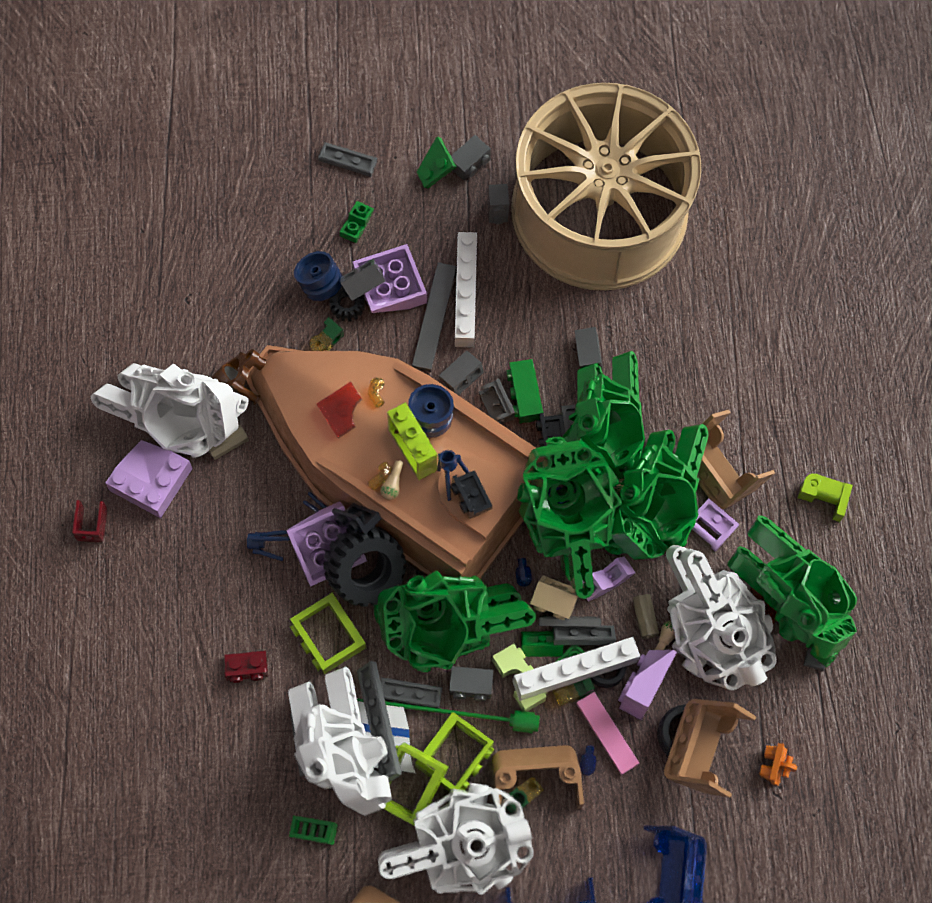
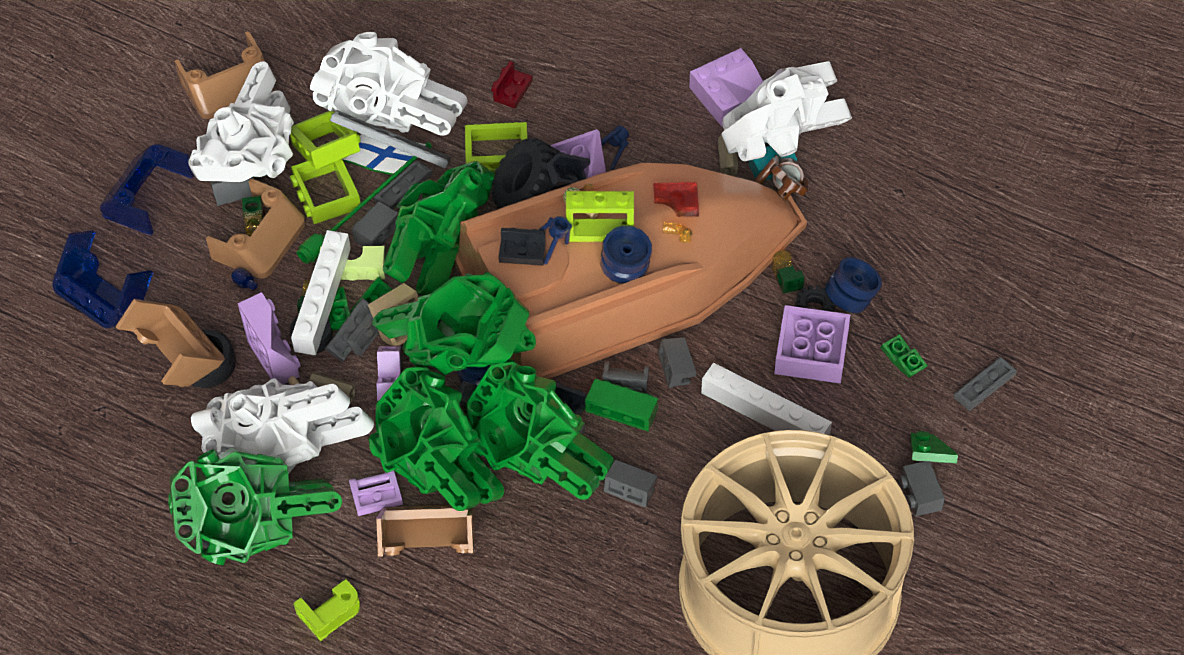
camera: 125 degrees right, 15 degrees down
(80, 535) = (715, 31): dark red piece -> none
(362, 279) = (823, 307): dark grey hinge -> none
(434, 317) = (750, 368): dark grey tile -> none
(607, 733) = (228, 306): bright pink tile -> none
(774, 772) = (119, 416): orange hips -> none

